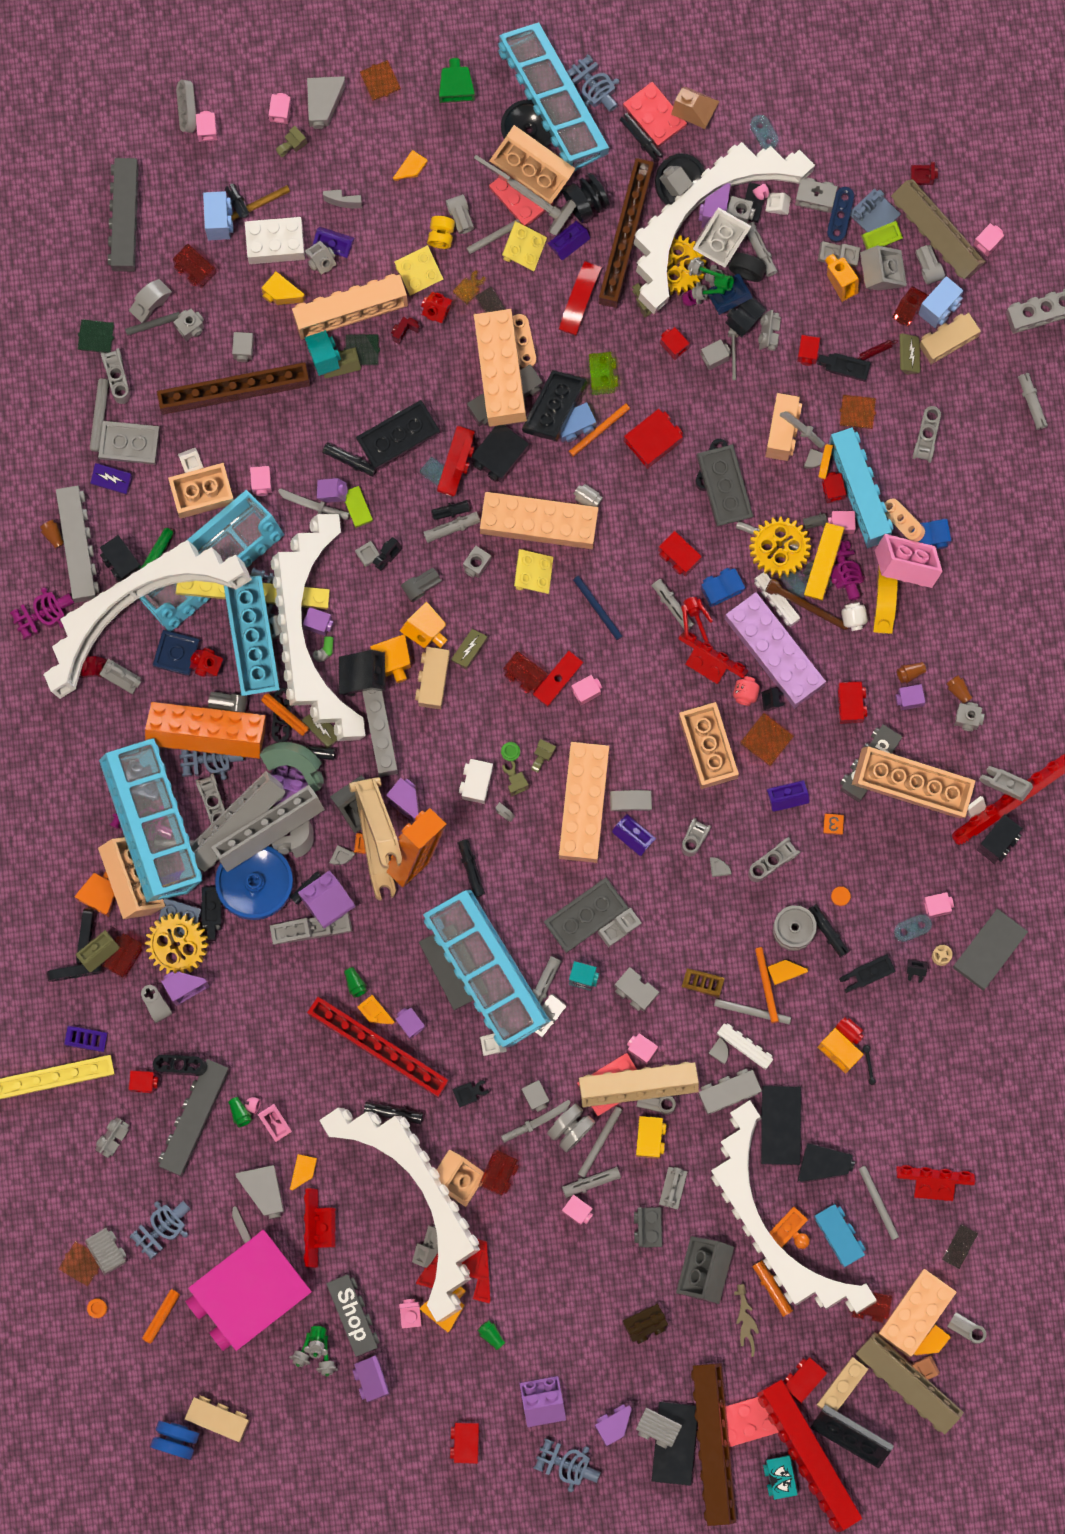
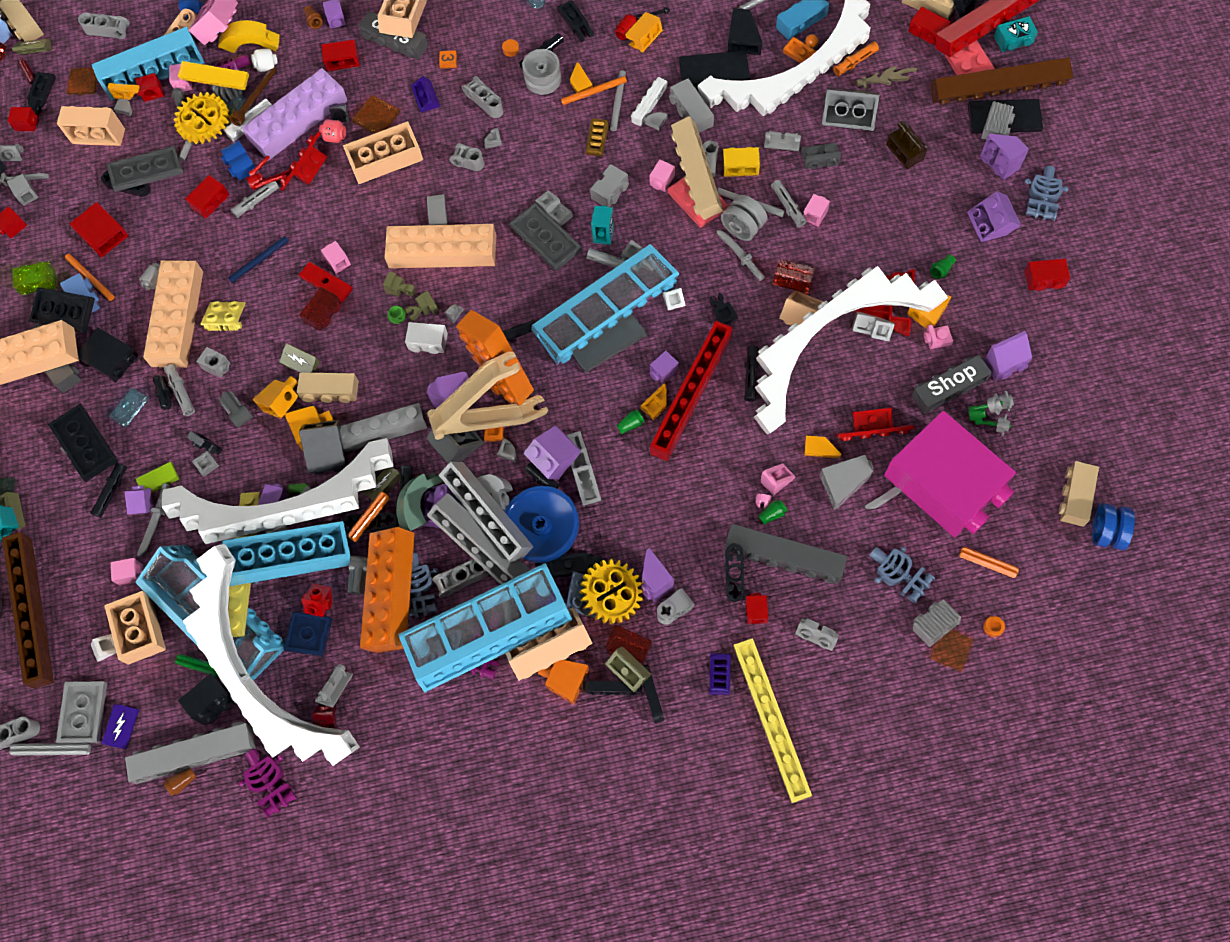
camera: 90 degrees left, 10 degrees down
(456, 461) = (111, 387): red bracket -> none
(535, 1096) = (717, 255): light grey brick -> none
(633, 835) = (468, 207): dark purple slope -> none
(806, 431) = (95, 104): light grey sword -> none

